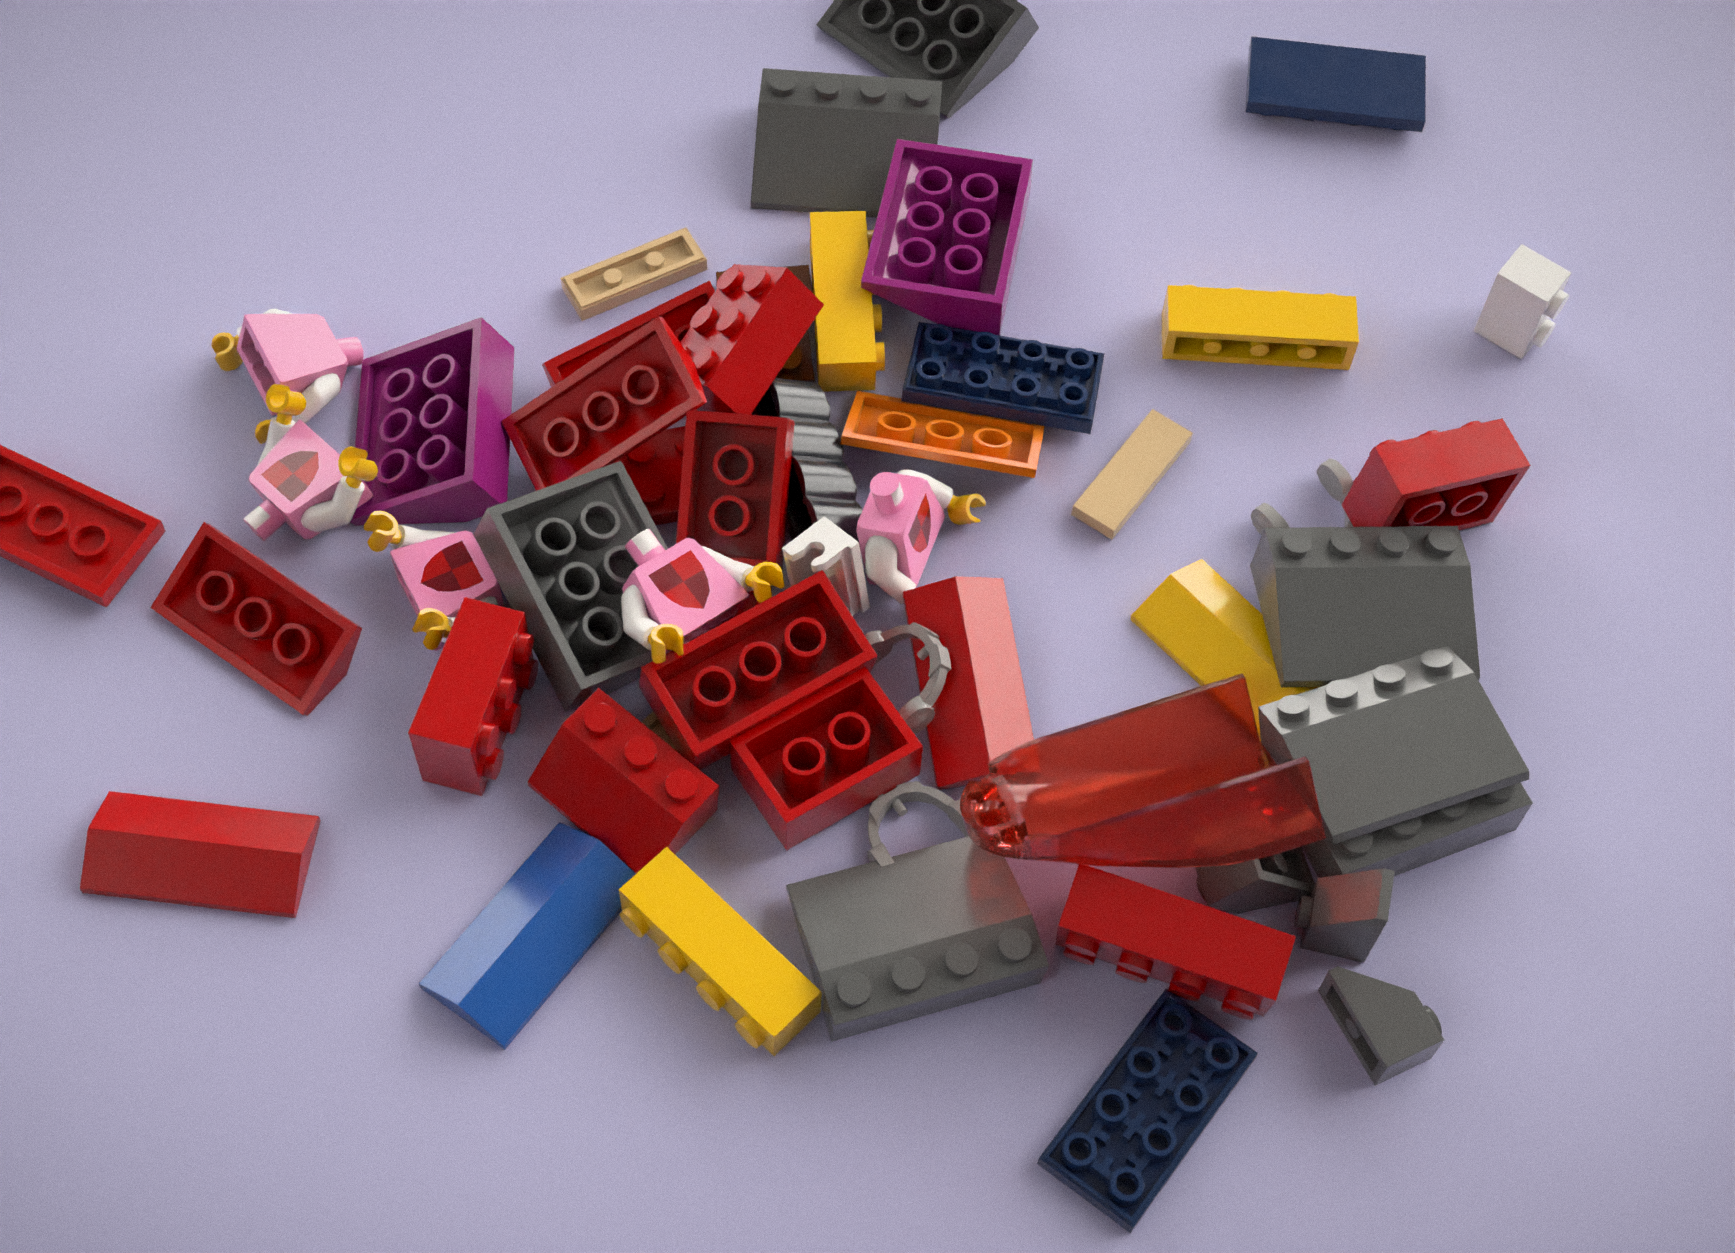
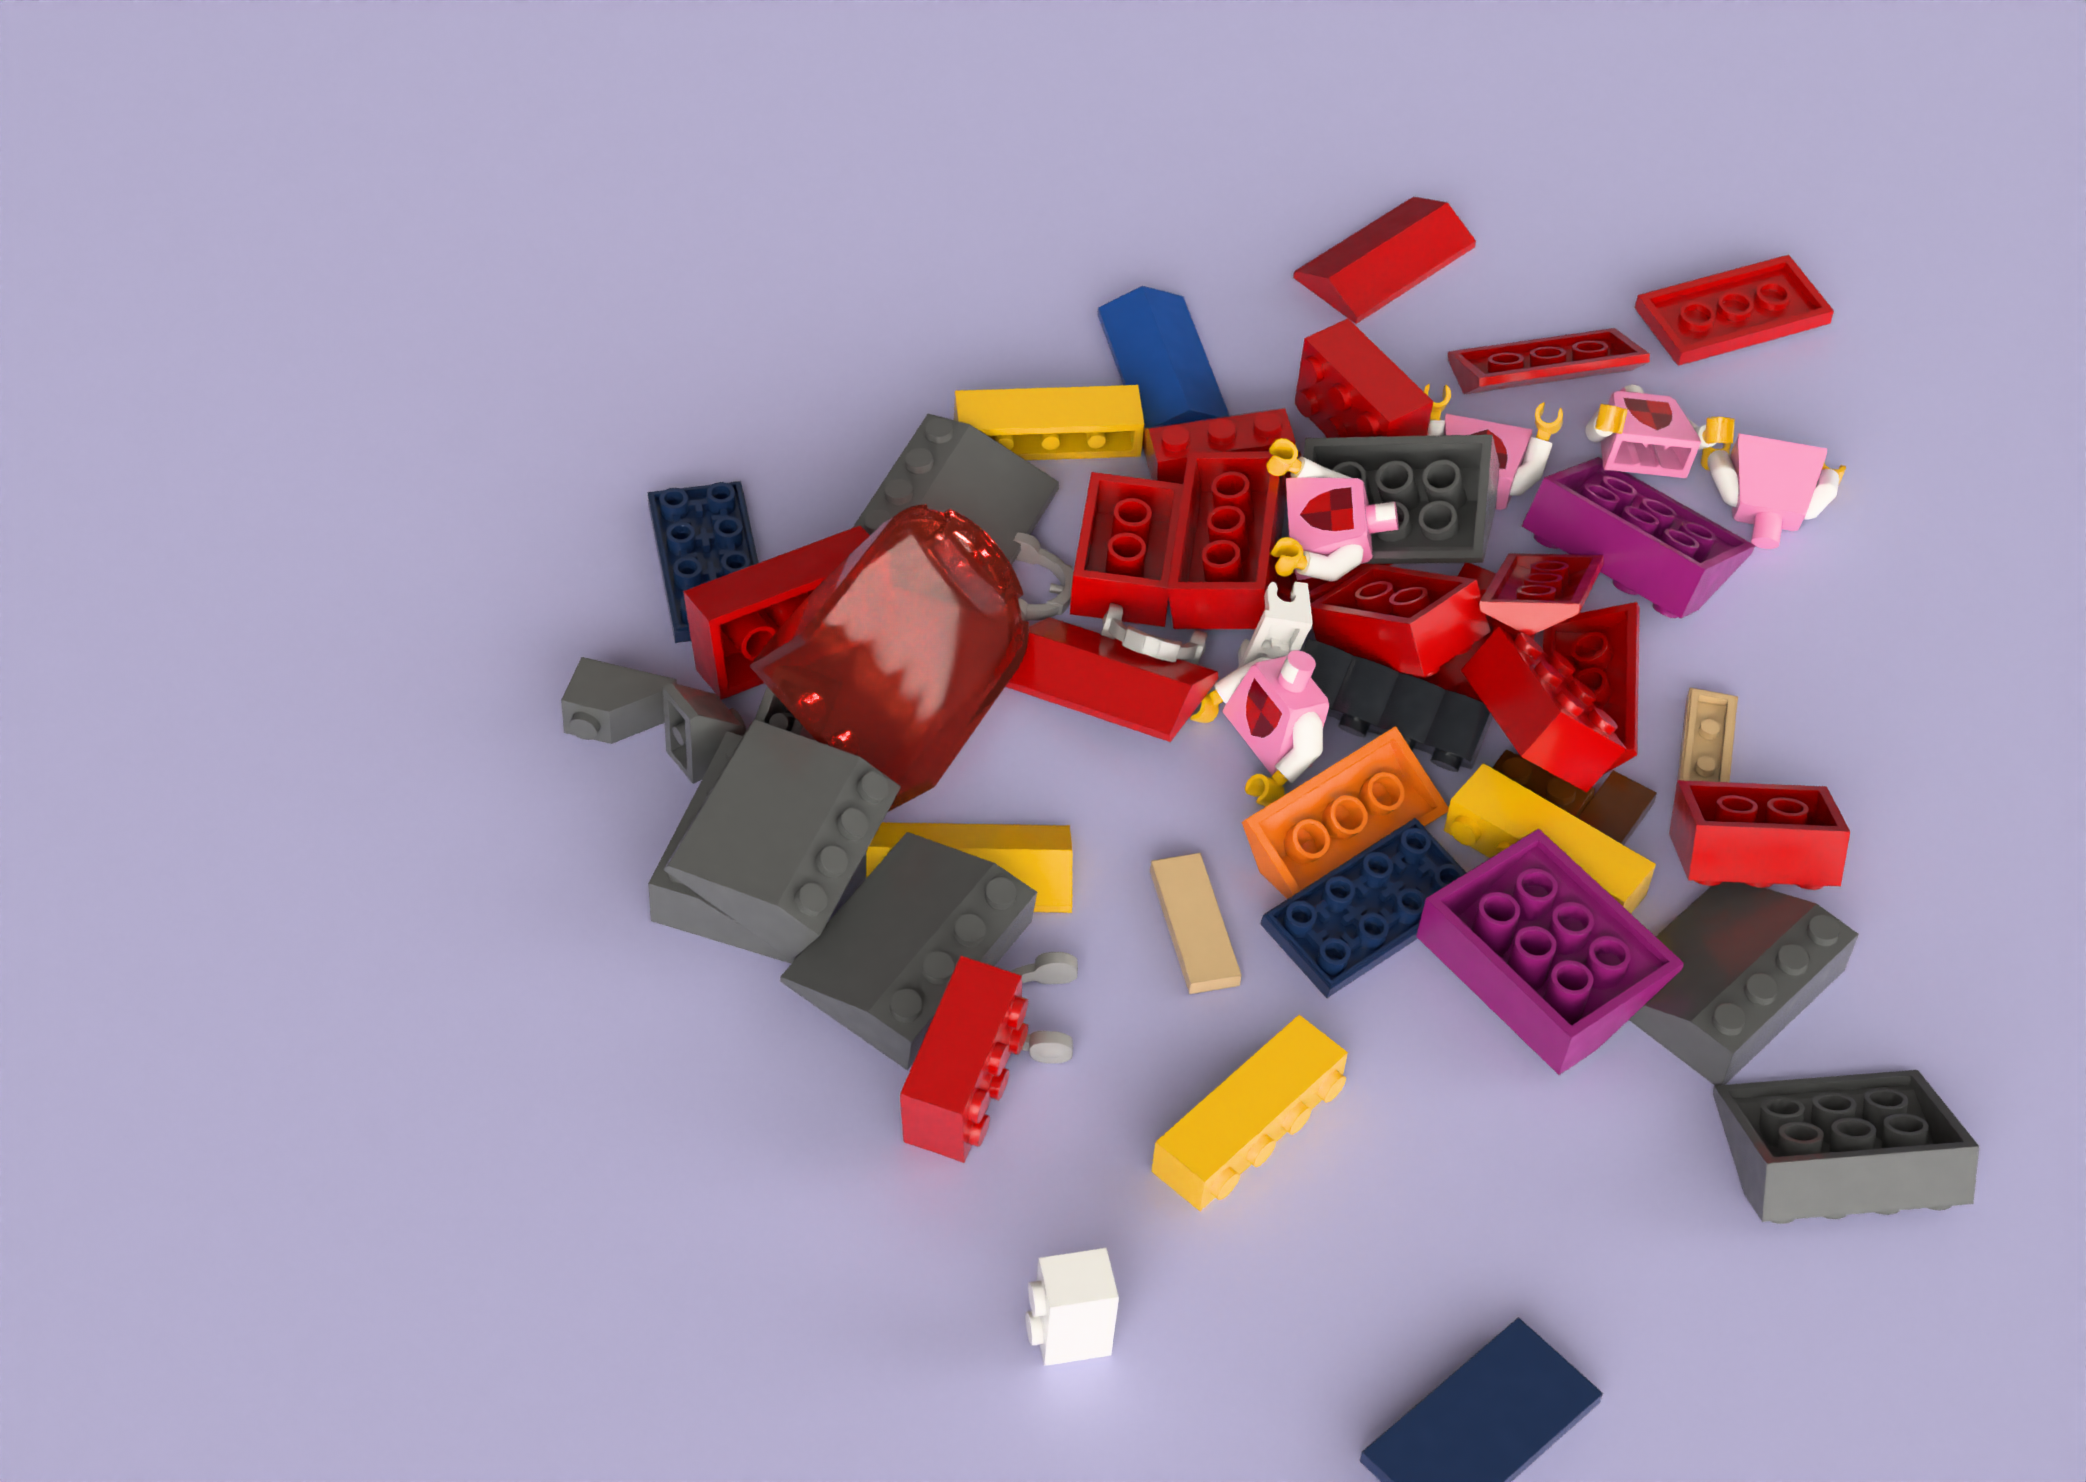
camera: 130 degrees right, 10 degrees down
(719, 169) = (1759, 834): none -> red brick

